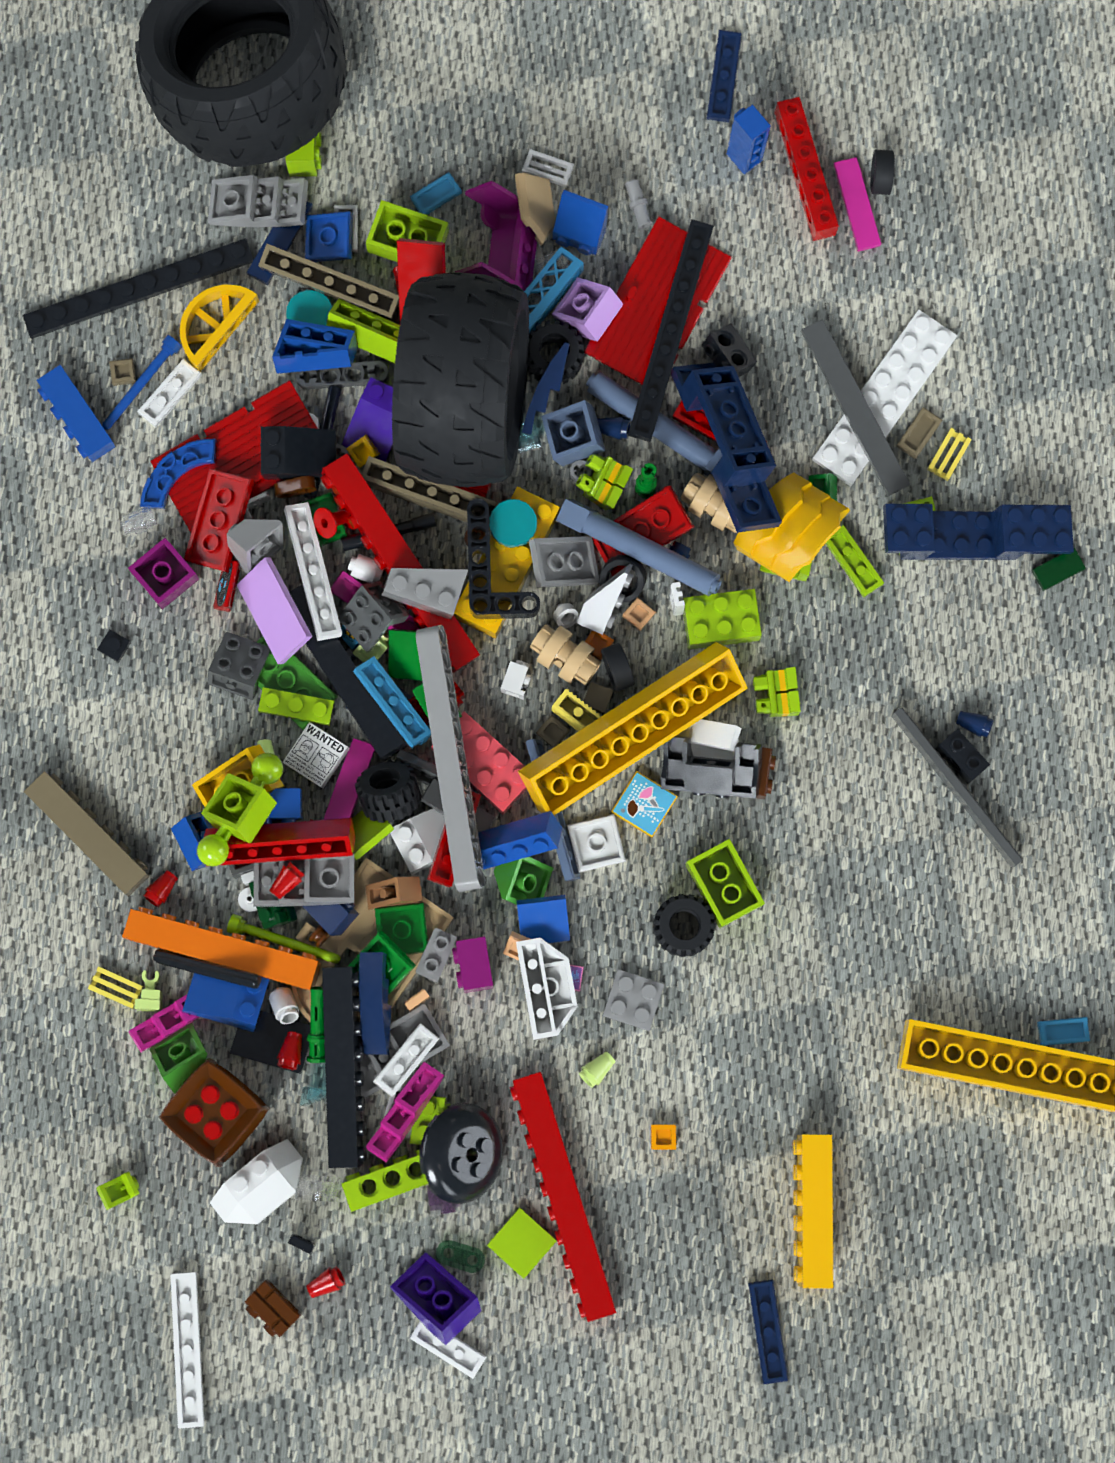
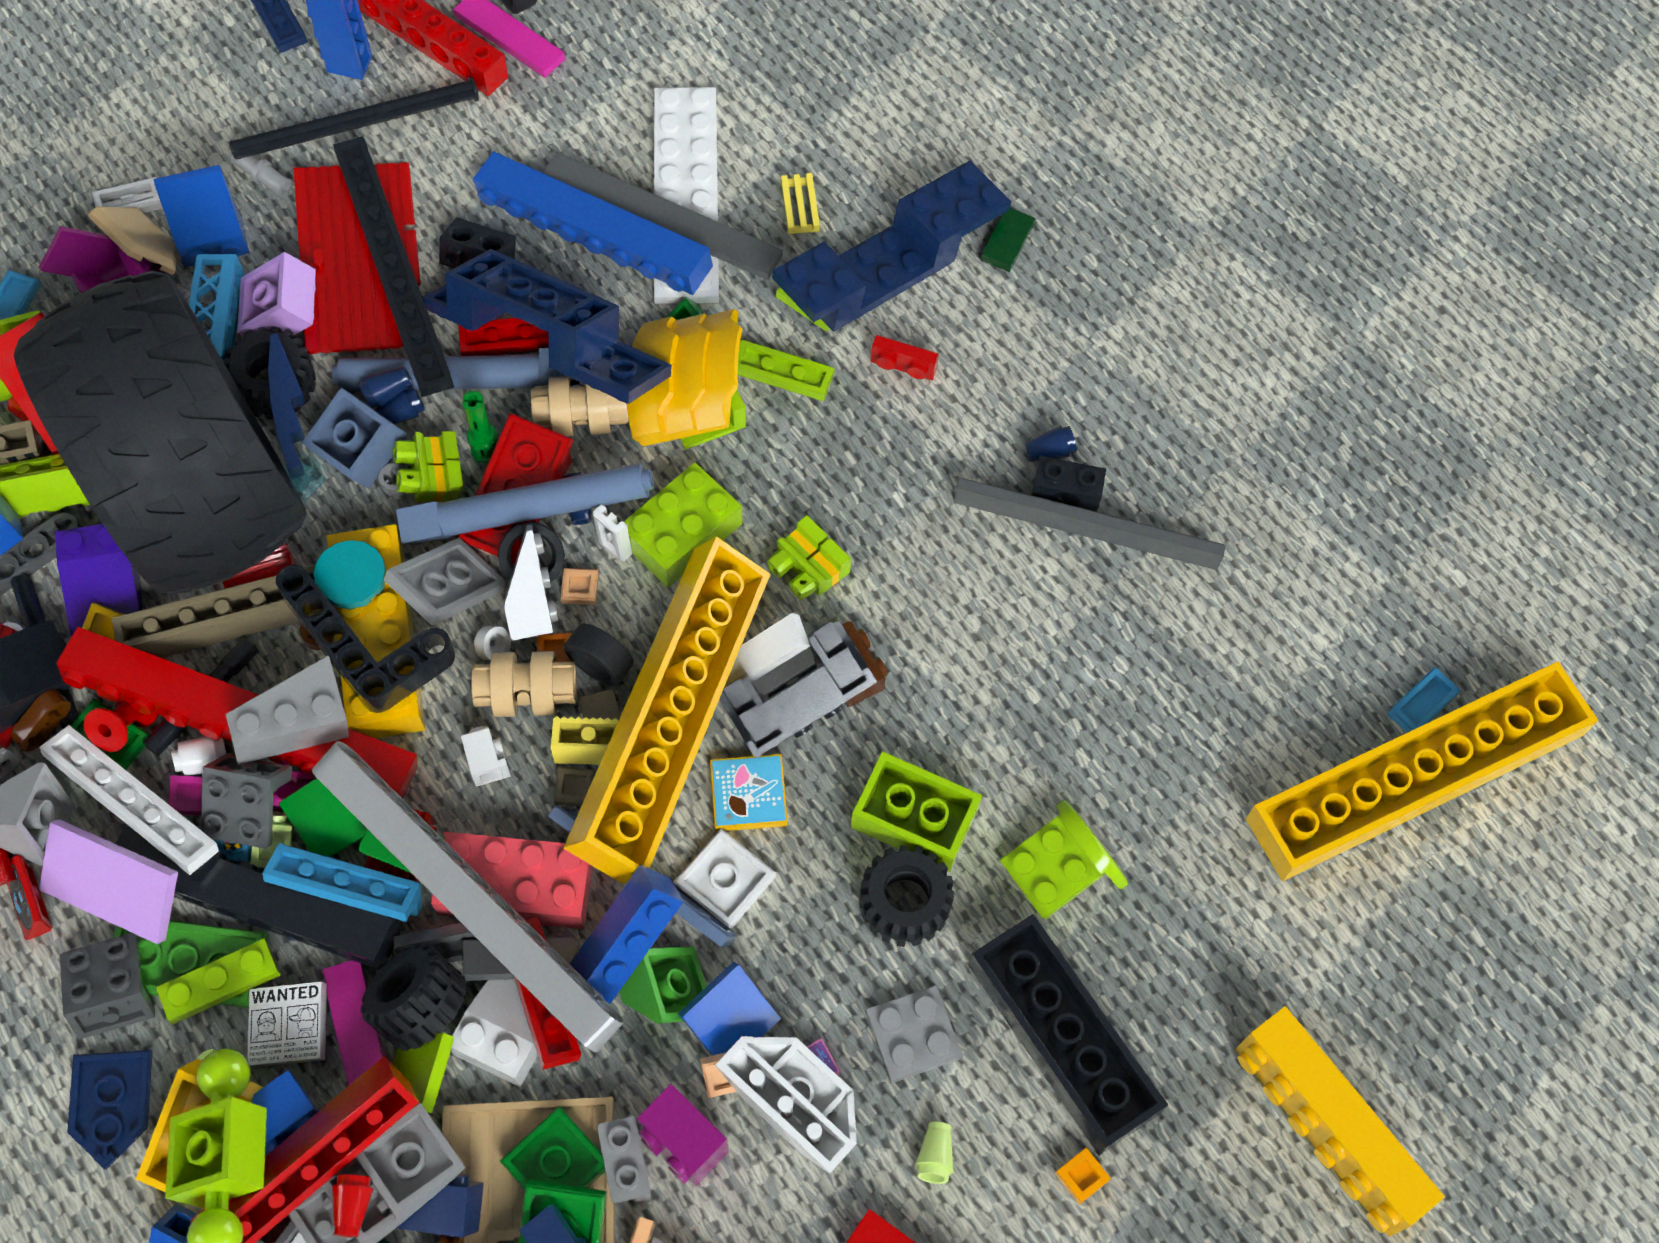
camera: 35 degrees left, 15 degrees down
(202, 730) = (109, 1102): none -> dark blue tile
(394, 892) = (510, 1119): medium nougat slope -> none
(612, 412) = (384, 386): none -> dark blue cone
(711, 1060) = (1066, 1034): none -> black brick
(718, 207) = (354, 119): none -> black axle
(782, 968) = (1060, 862): none -> lime piece
(809, 383) = (593, 223): none -> blue brick
(919, 433) = (751, 203): dark tan tile -> none
(936, 614) = (904, 357): none -> red plate

